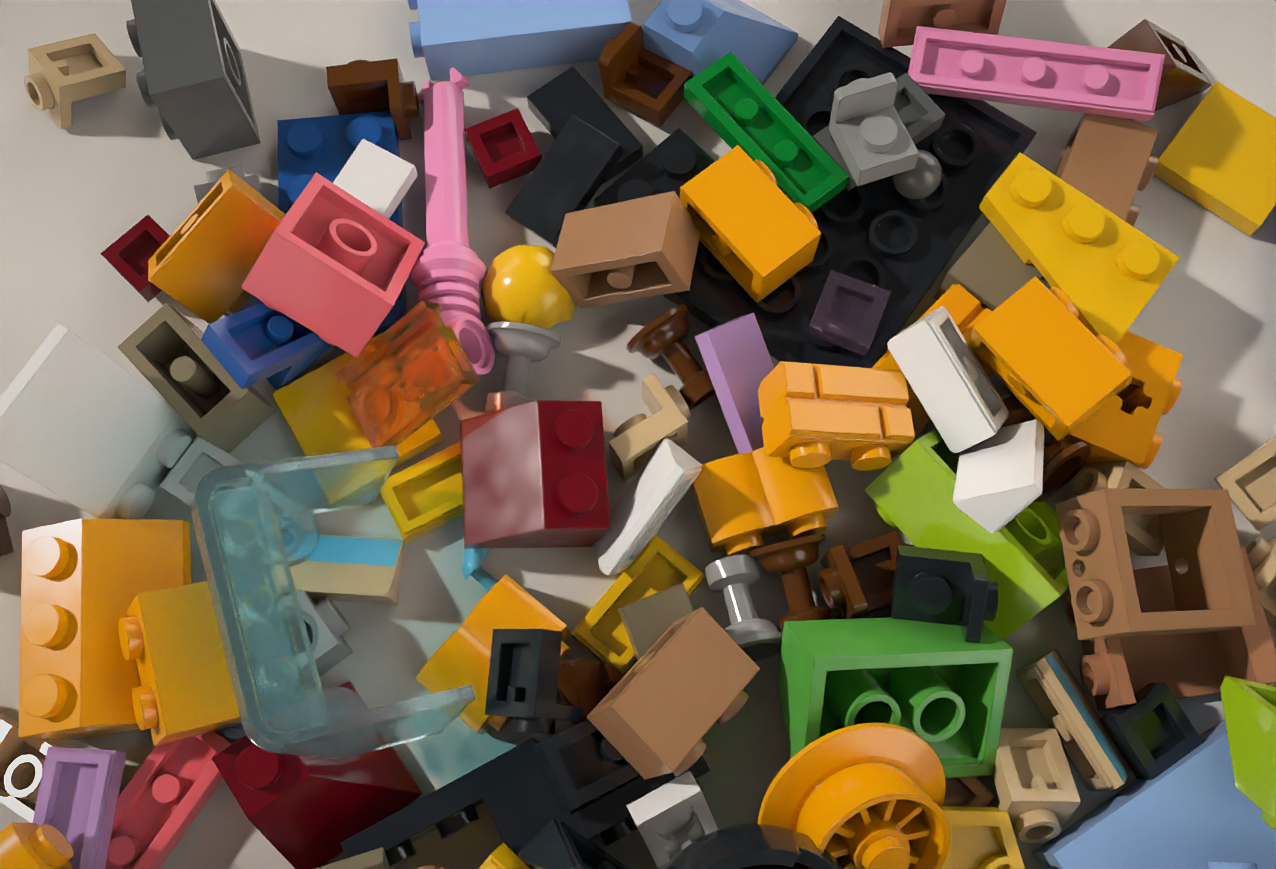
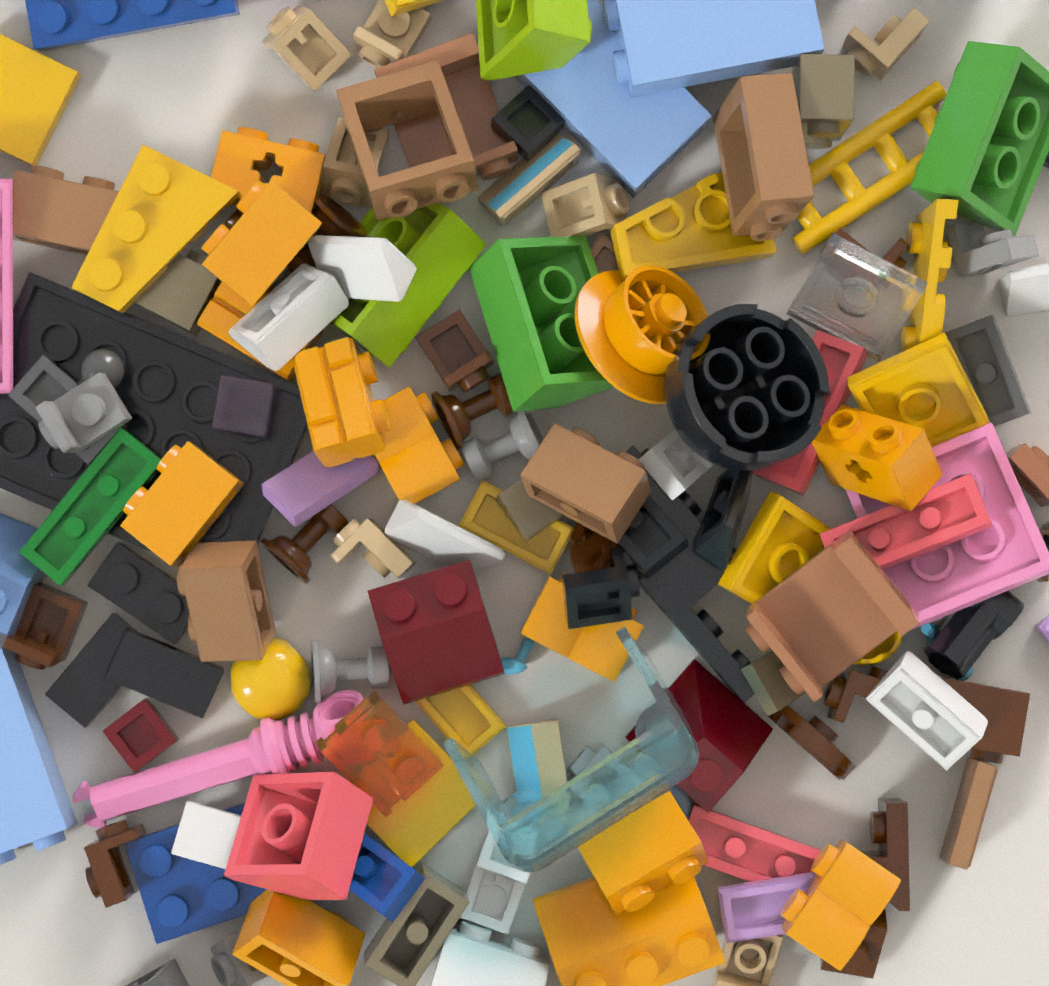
camera: 100 degrees left, 15 degrees up
(943, 589) = (460, 296): black bracket -> none

